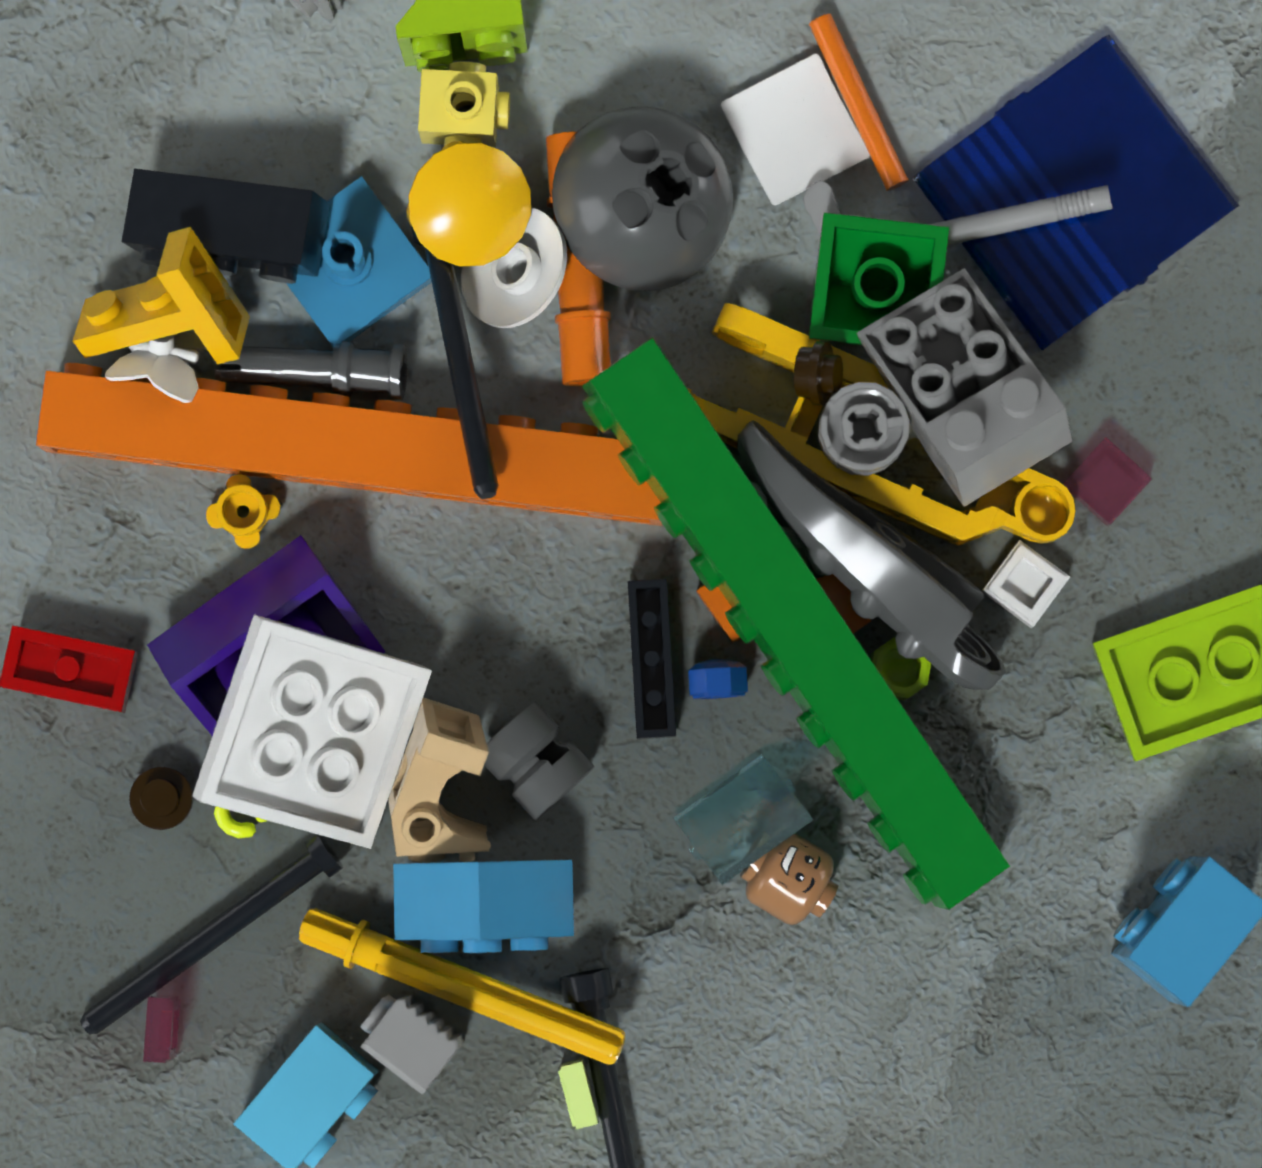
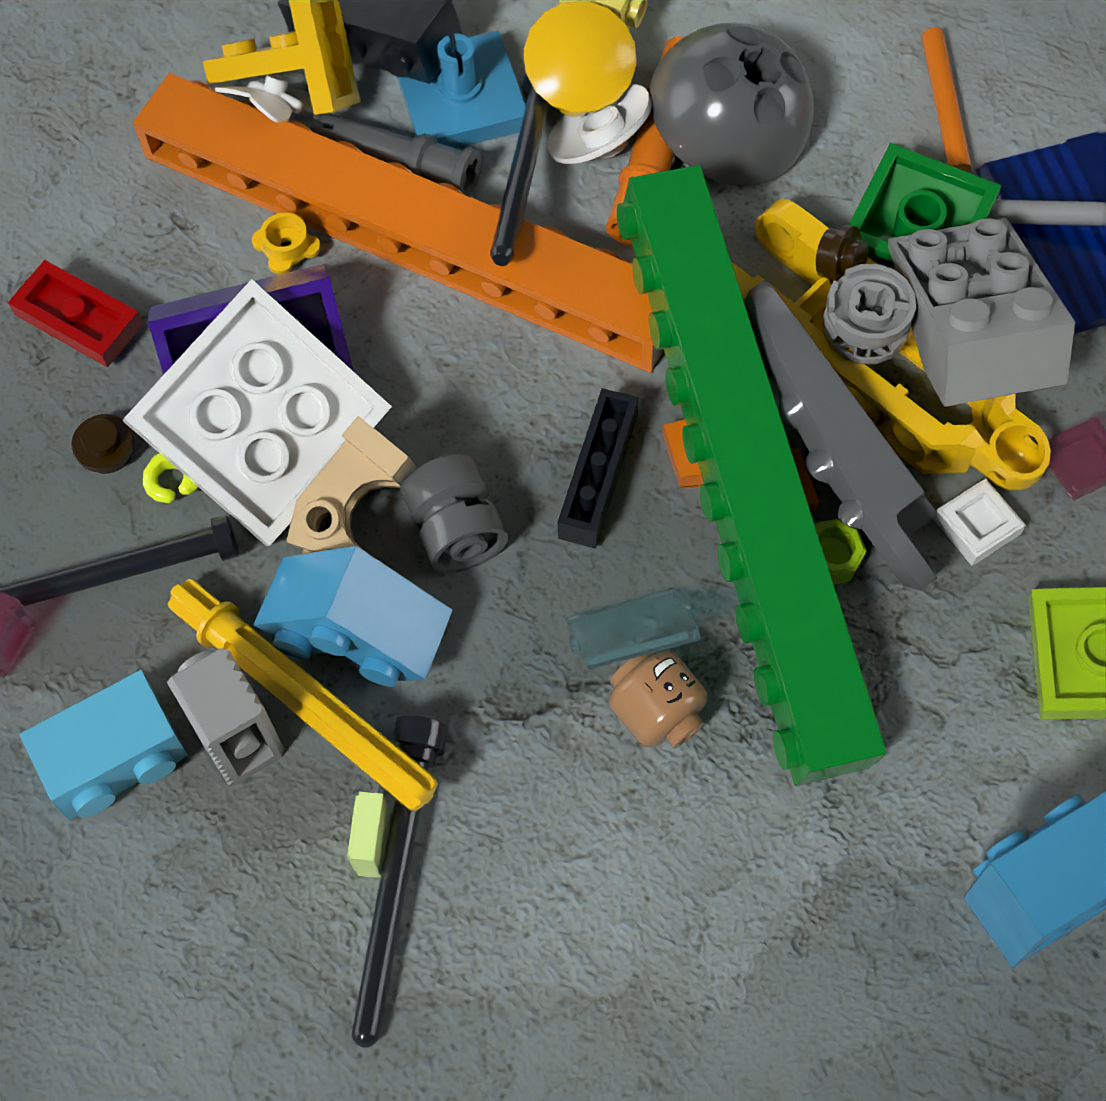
camera: 20 degrees right, 20 degrees down
(717, 679) = (653, 505): blue tile -> none
(794, 129) = (881, 106): white sticker -> none

